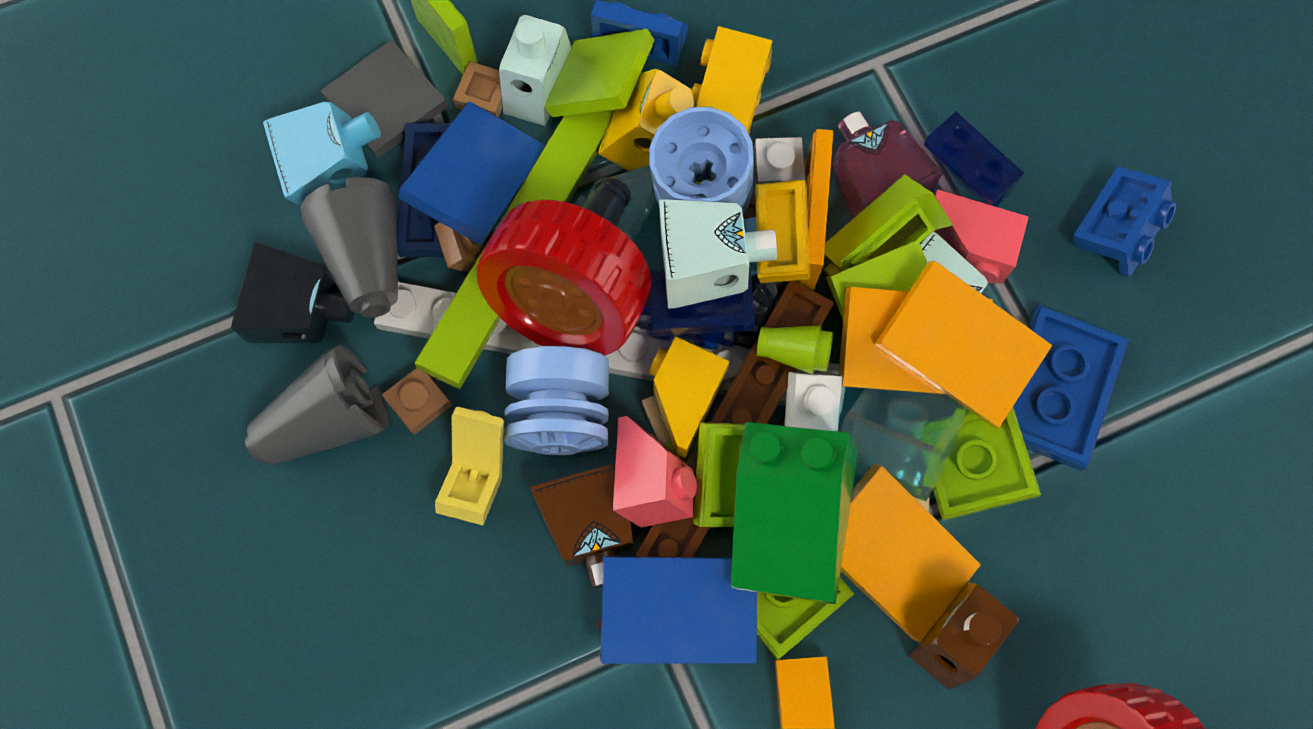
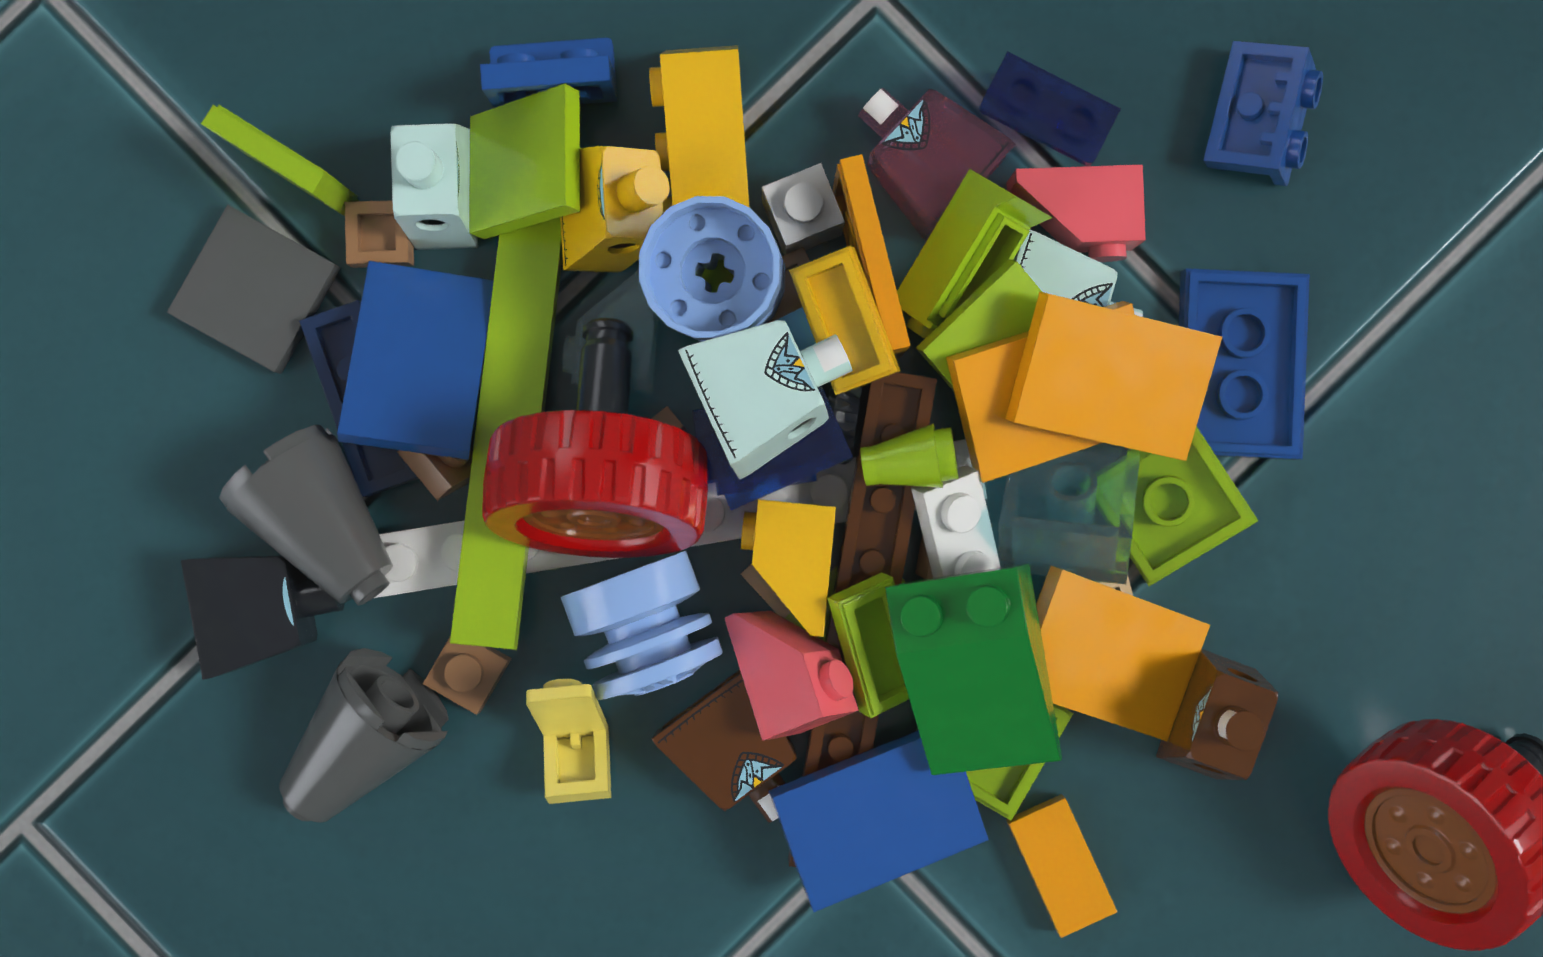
camera: 20 degrees left, 15 degrees up
(318, 148) = (205, 403): medium azure torso -> none

